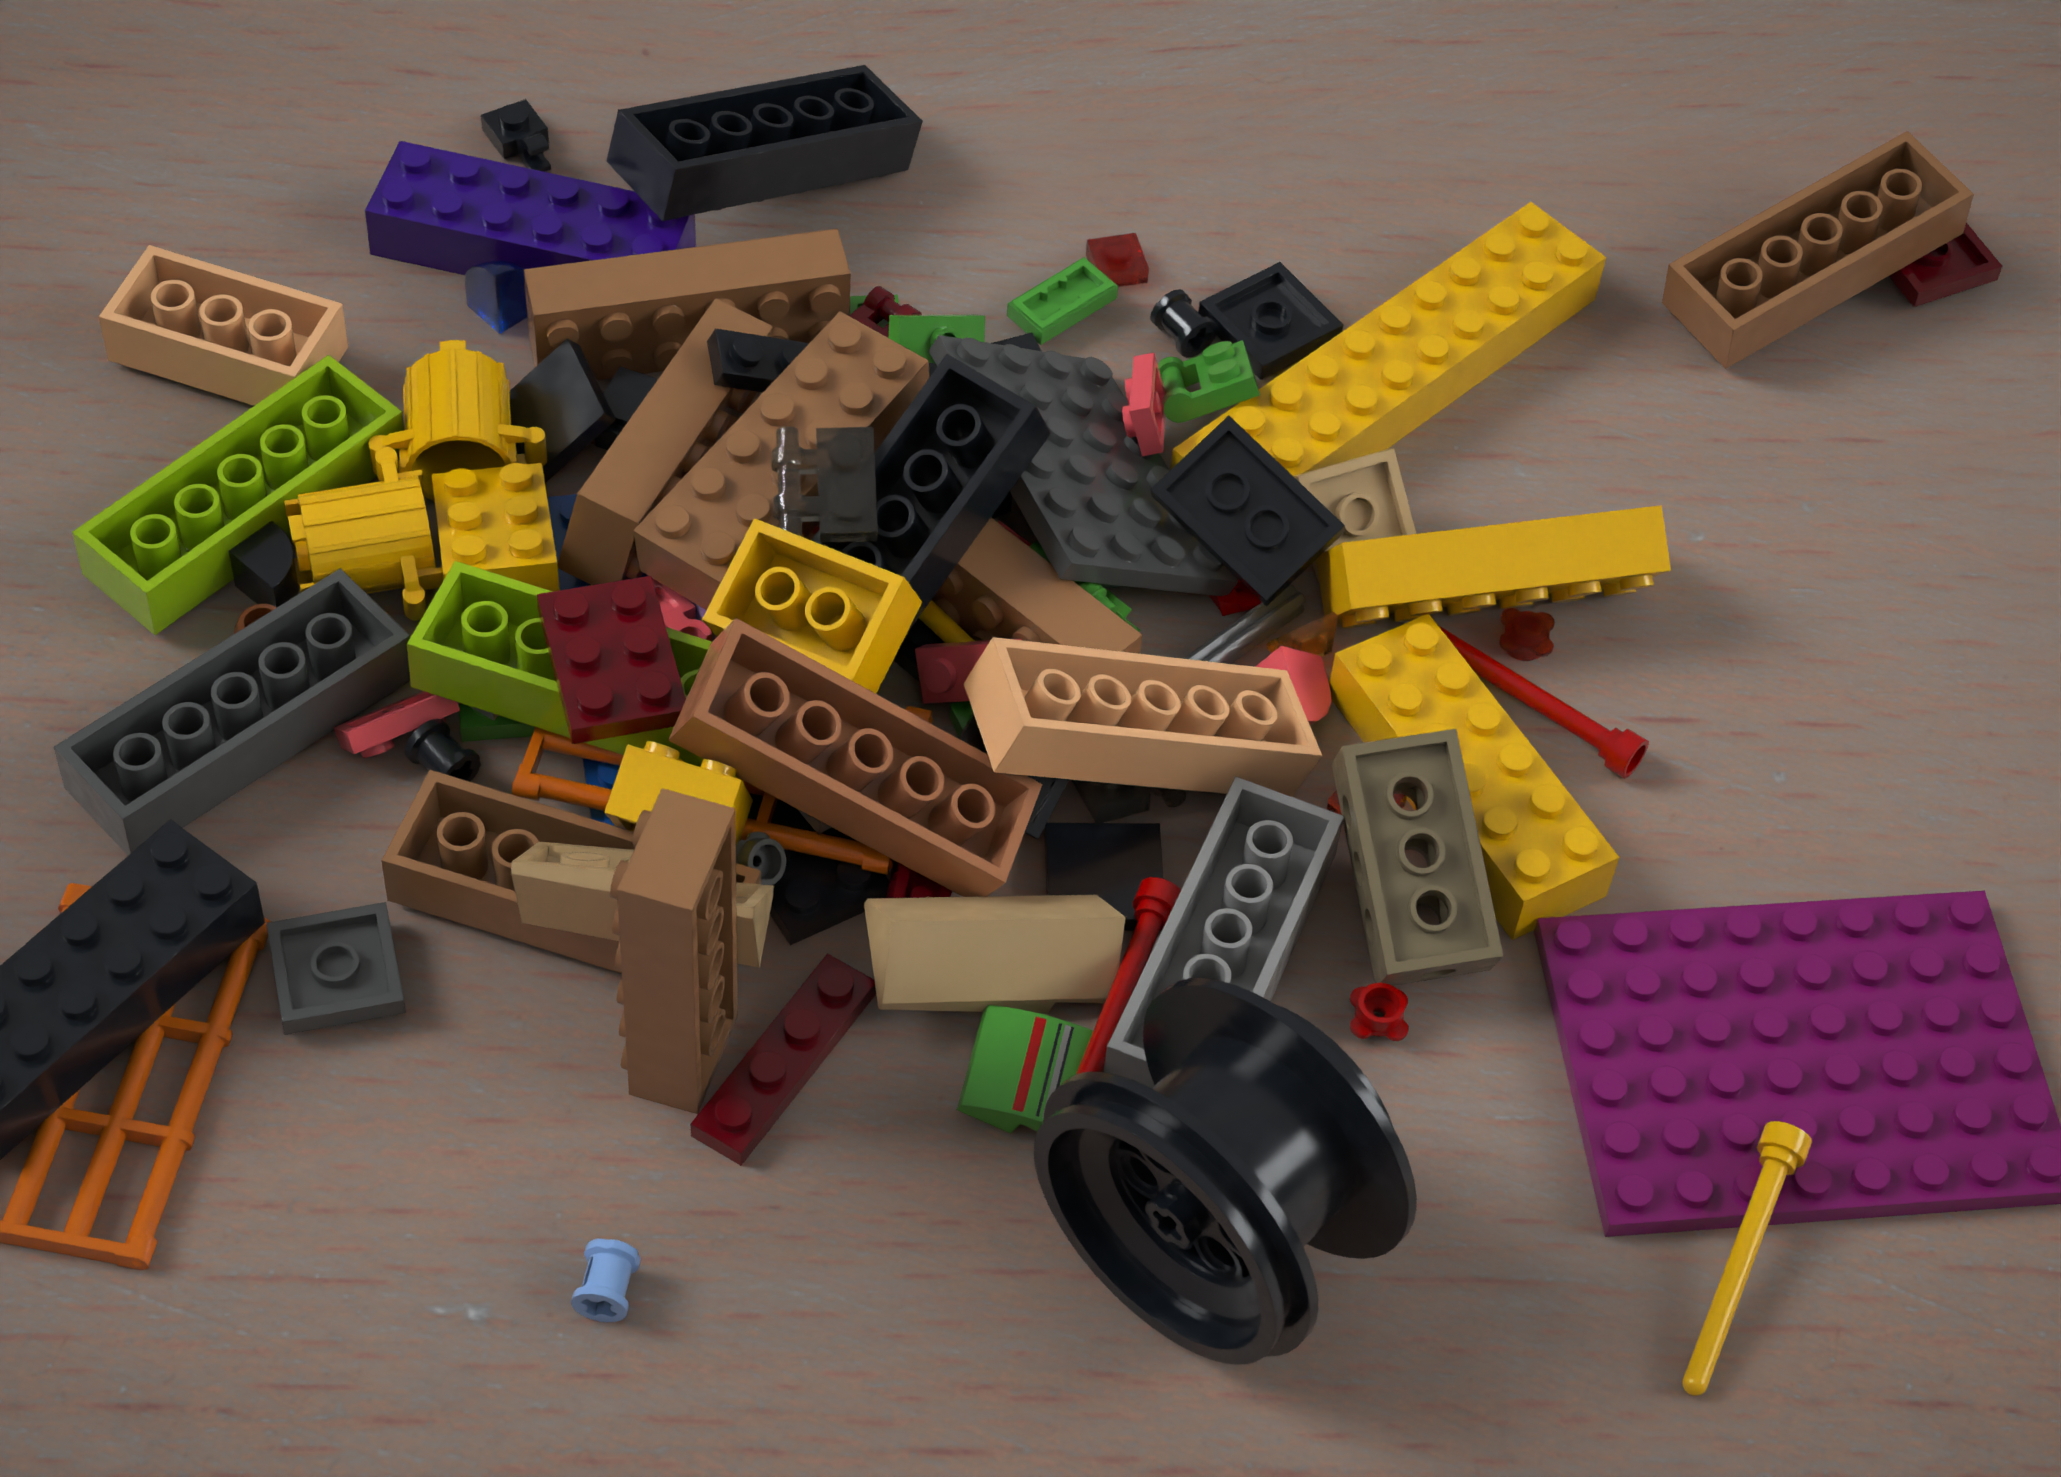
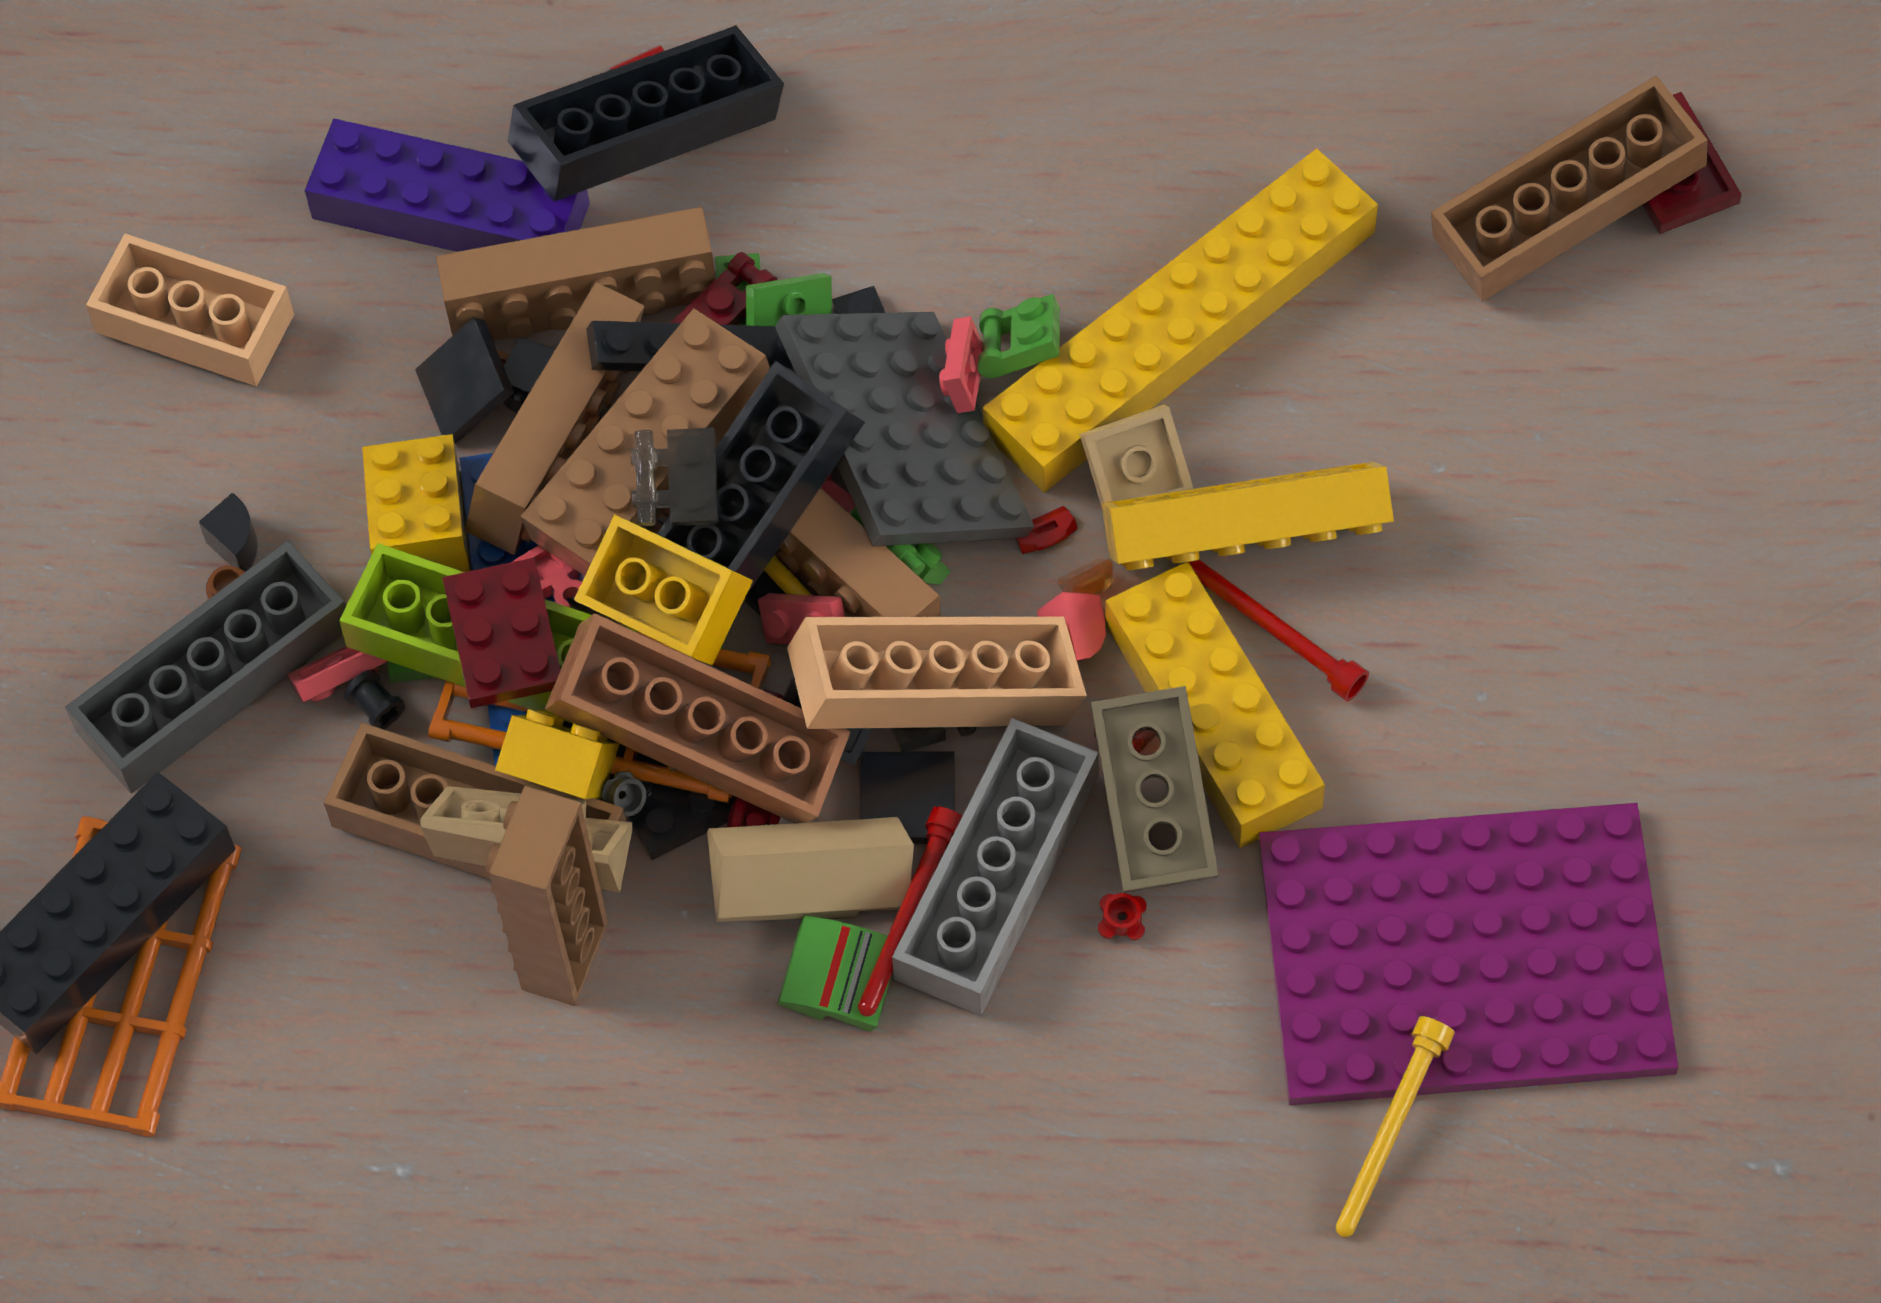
camera: 10 degrees right, 10 degrees up
(173, 534) = (223, 445): lime brick -> none
(335, 968) = (291, 887): dark grey plate -> none
(371, 533) = (311, 505): yellow container -> none
(458, 417) = (382, 396): yellow container -> none
(497, 293) = (417, 262): clear blue brick -> none
(519, 132) = (438, 92): black plate -> none
(606, 1280) = (500, 1147): light blue bush -> none
(783, 1059) = (643, 960): dark red plate -> none
(1062, 300) = (902, 252): bright green plate -> none
(1119, 258) = (953, 208): clear red plate -> none
(1184, 323) = (1006, 273): black bush -> none
(1224, 1171) = (968, 1070): black wheel -> none
(1247, 510) = (1039, 470): black plate -> none
(1251, 629) = (1033, 576): dark grey axle -> none
(1272, 317) = (1082, 266): black plate -> none
(1526, 634) = (1277, 580): clear red plate -> none

